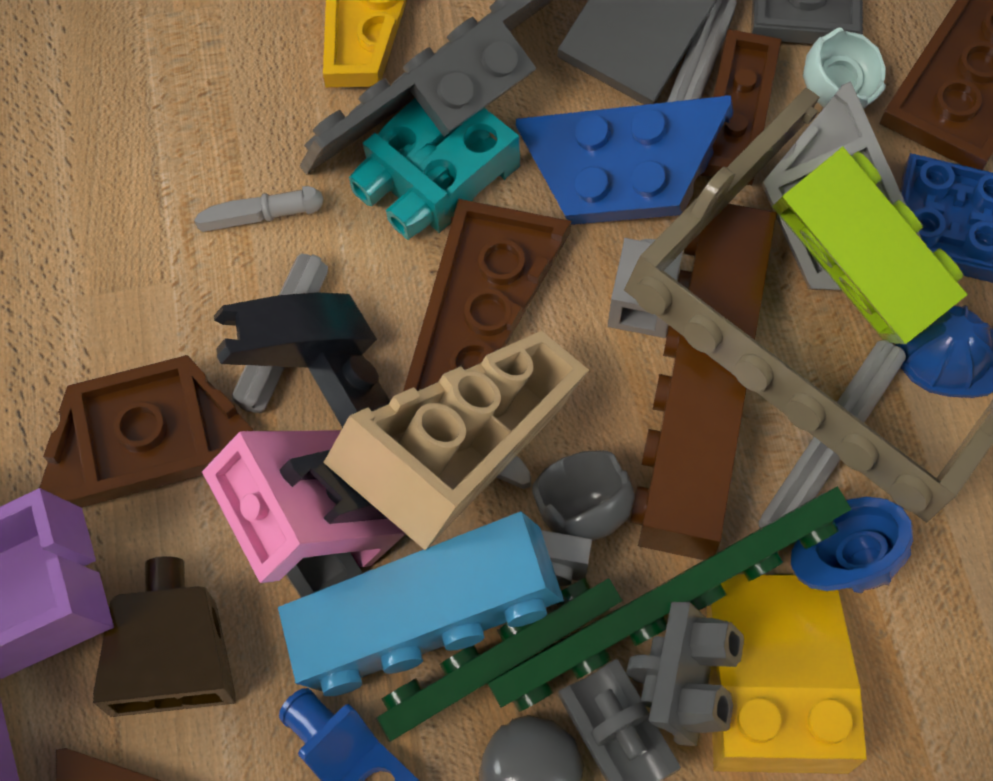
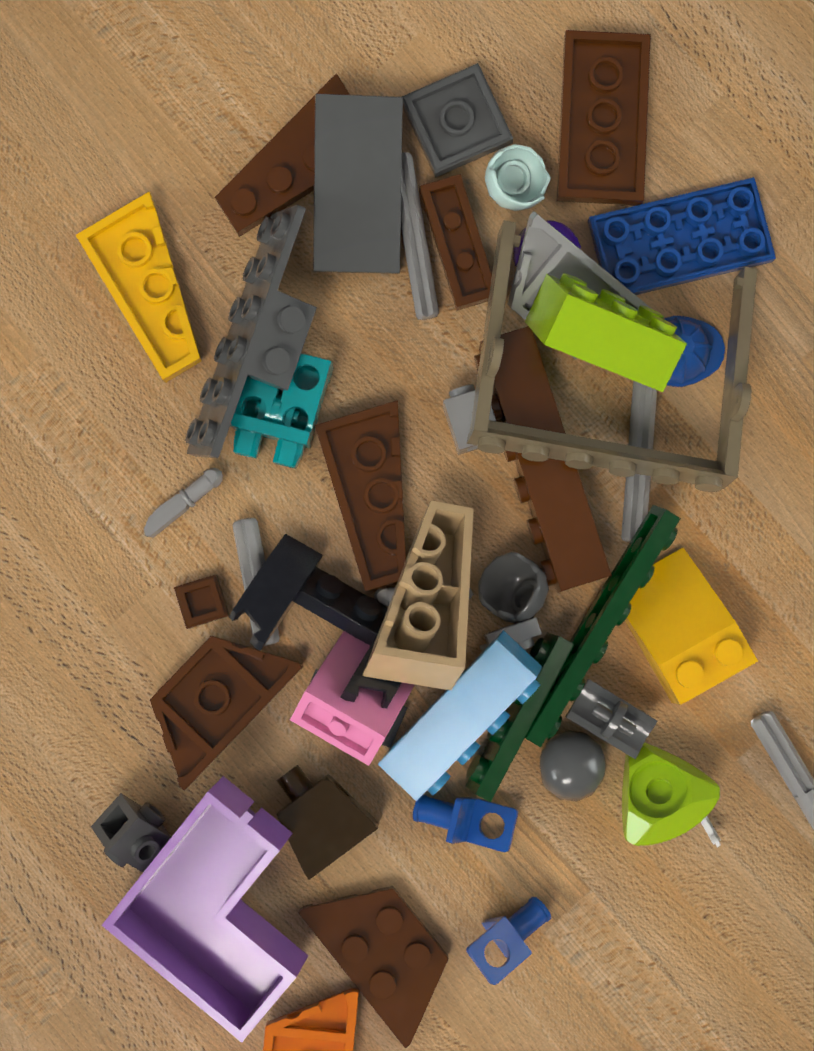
camera: 30 degrees left, 20 degrees up
(194, 322) = (201, 601): none -> reddish brown tile
(626, 158) = (405, 332): blue wing -> none
(679, 674) = (630, 670): dark grey hips -> none
(864, 553) = (698, 529): blue piece -> none

